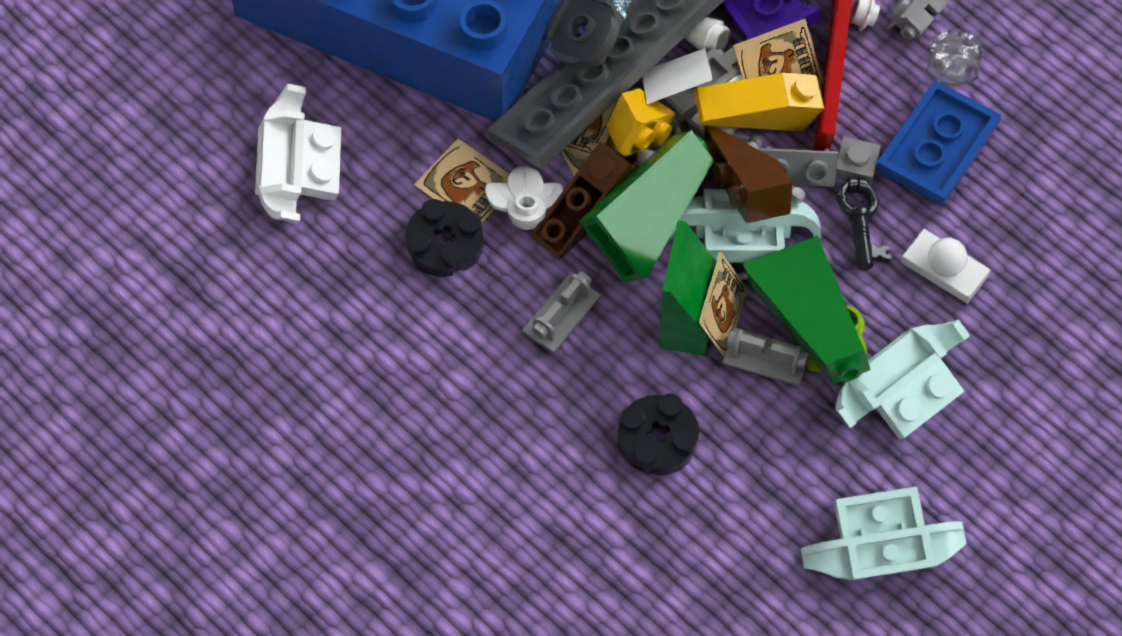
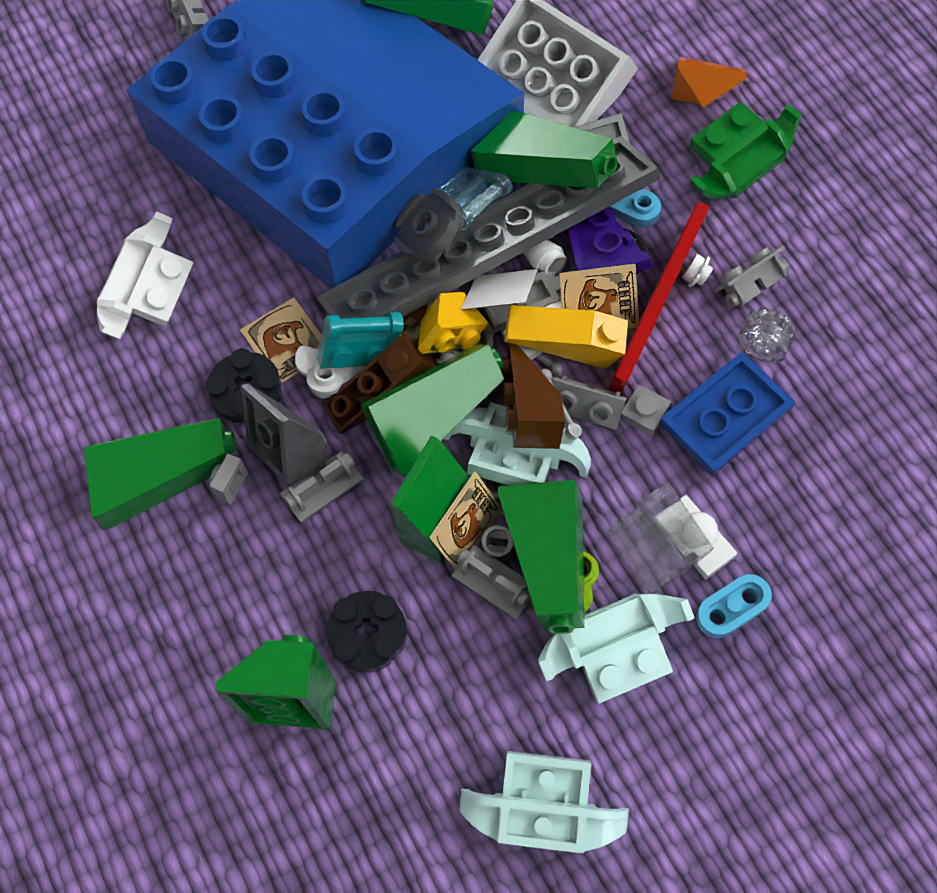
camera: 20 degrees right, 5 degrees up
(386, 336) = (151, 468): none -> green slope
(465, 328) = (228, 478): none -> light grey plate
(508, 271) = (281, 437): none -> flat silver slope
(553, 159) = (356, 340): none -> teal plate
(616, 486) = (282, 685): none -> green slope
(756, 310) = (501, 533): none -> light grey hinge
(859, 216) = (628, 466): black piece -> none
(914, 272) = (660, 539): none -> clear slope
(1001, 321) = (732, 607): none -> medium azure plate

